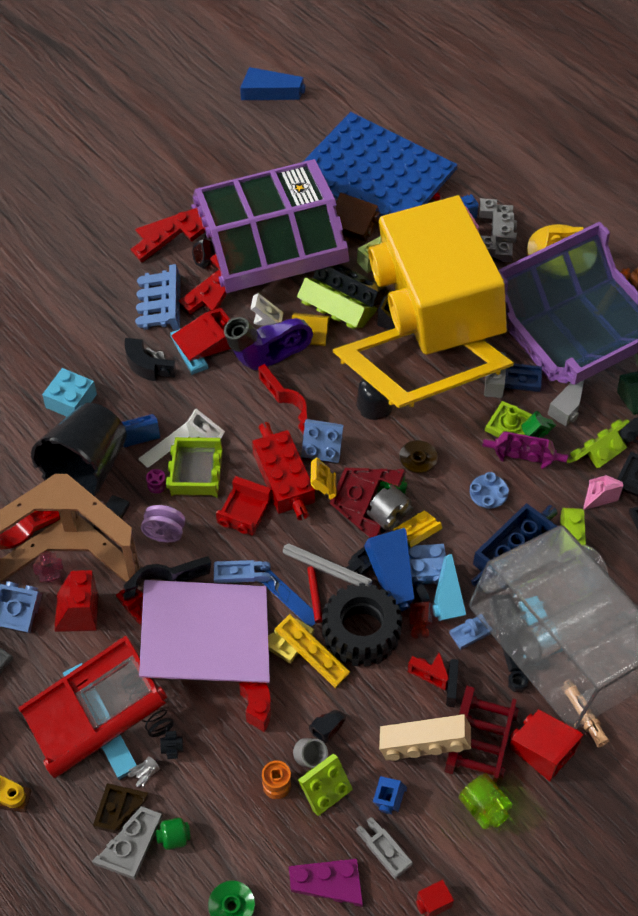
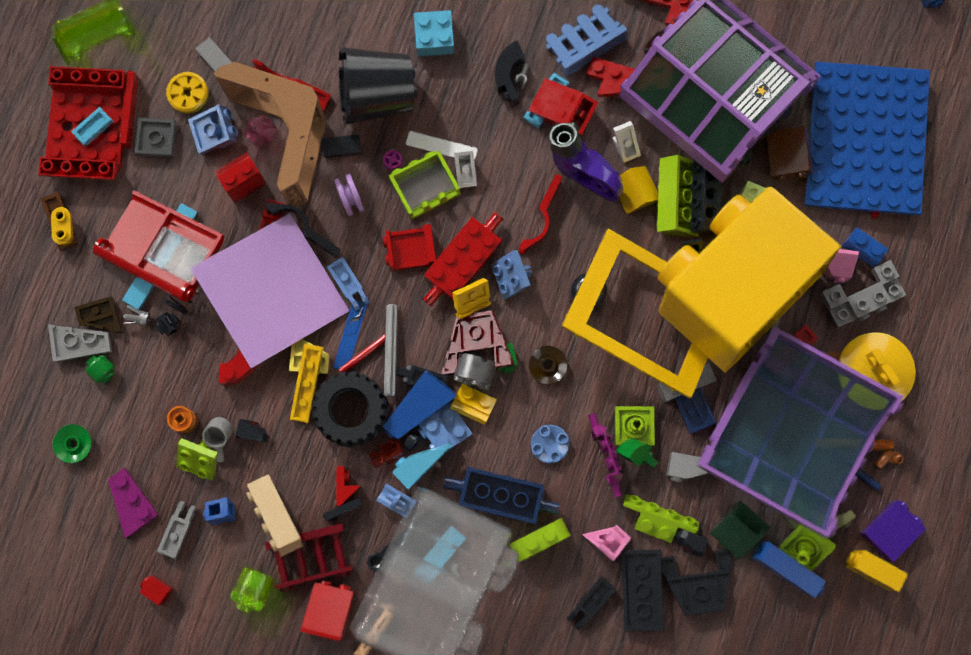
camera: 60 degrees right, 25 degrees up
(141, 430) = (436, 111): blue slope -> none

